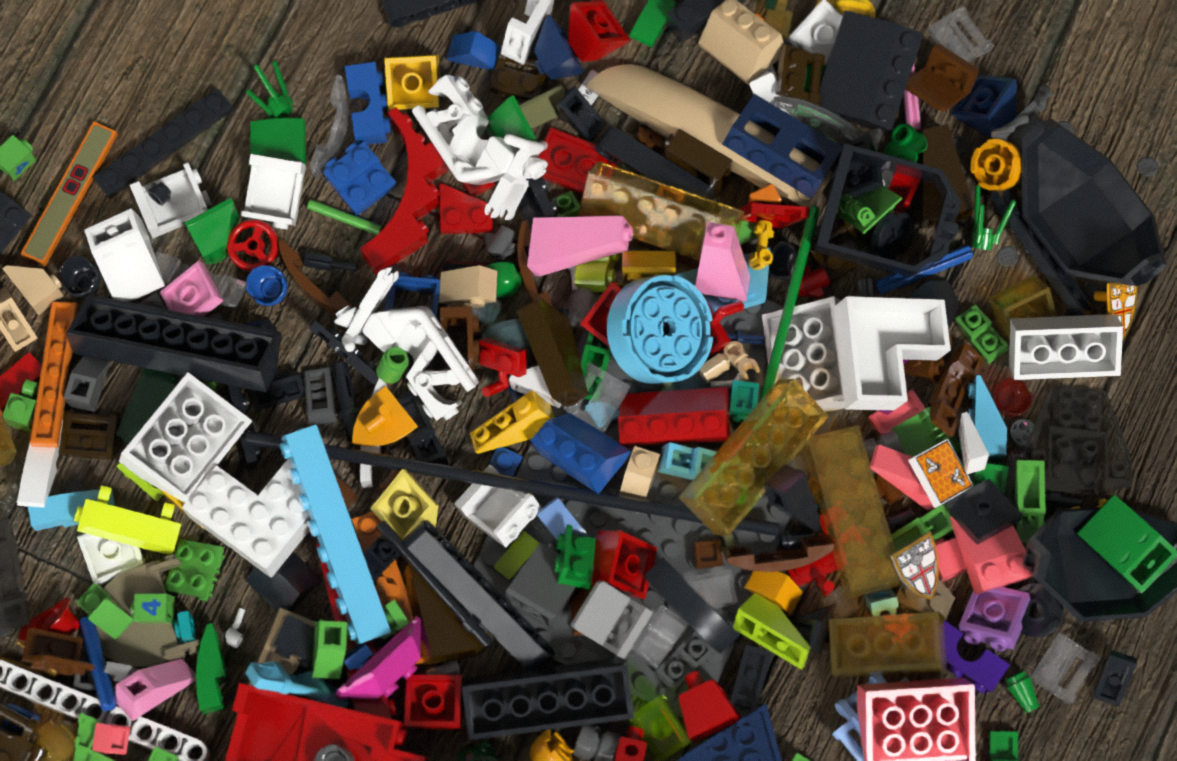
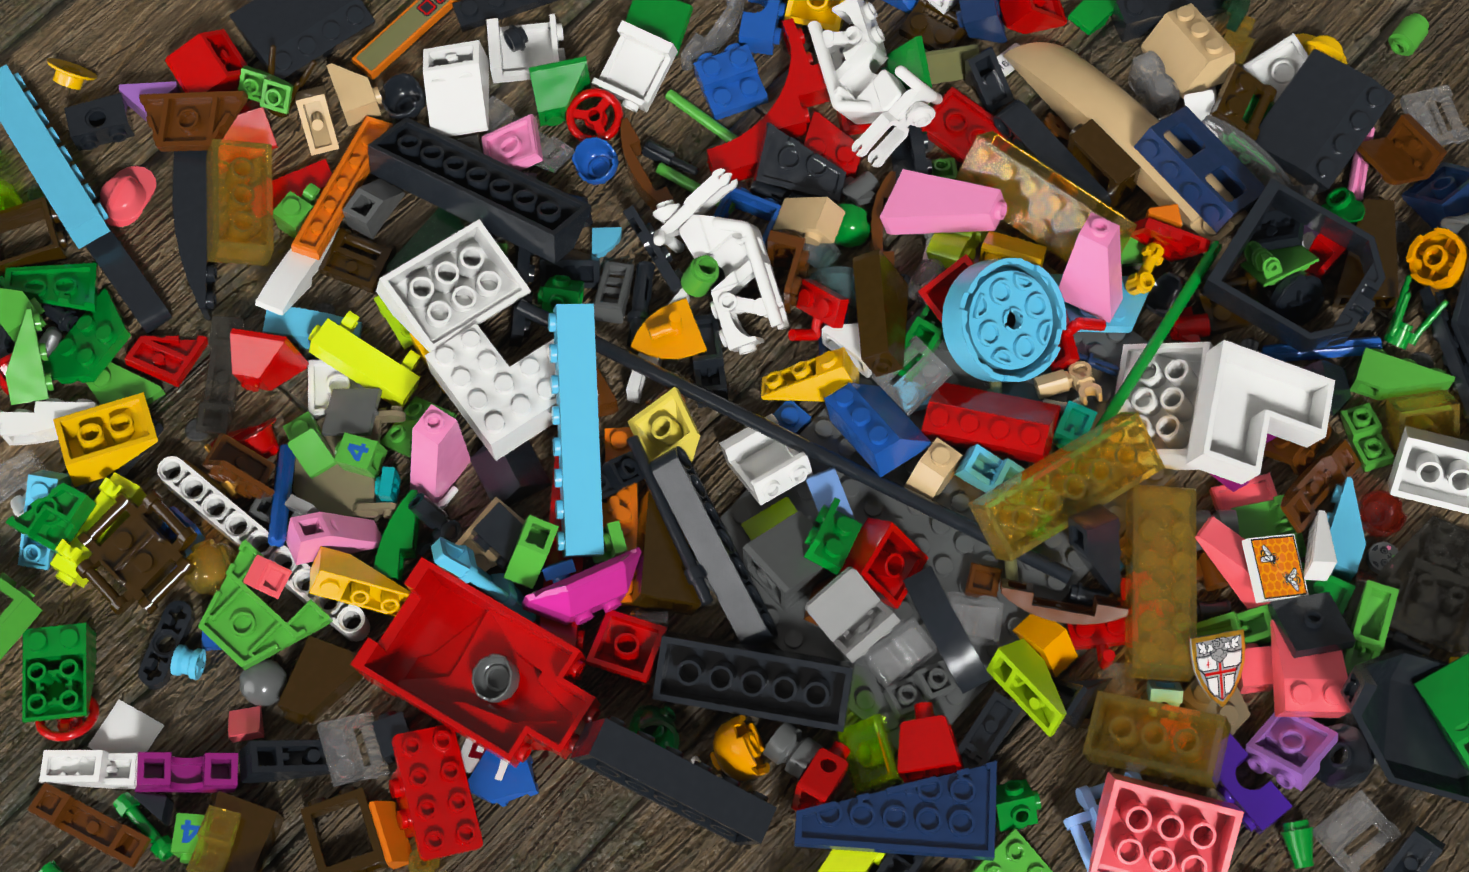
camera: 20 degrees right, 5 degrees down
(40, 550) = (263, 359): none -> slope
(132, 572) = (351, 412): none -> dark grey piece
(186, 720) = (351, 581): none -> yellow slope
(220, 590) = (437, 454): none -> bright pink slope
(246, 648) = (435, 519): none -> black bar
(278, 416) = (560, 290): none -> green brick
(297, 352) = (604, 240): none -> medium azure tile
(349, 280) = (683, 181): none -> bright green bar
(421, 268) = (769, 191): none -> black pin
(441, 241) = (795, 167): none -> black wing
(723, 80) = (1153, 85): none -> clear brick
(791, 733) = (1016, 805): none -> green brick
(984, 278) = (1387, 376): none -> bright green slope

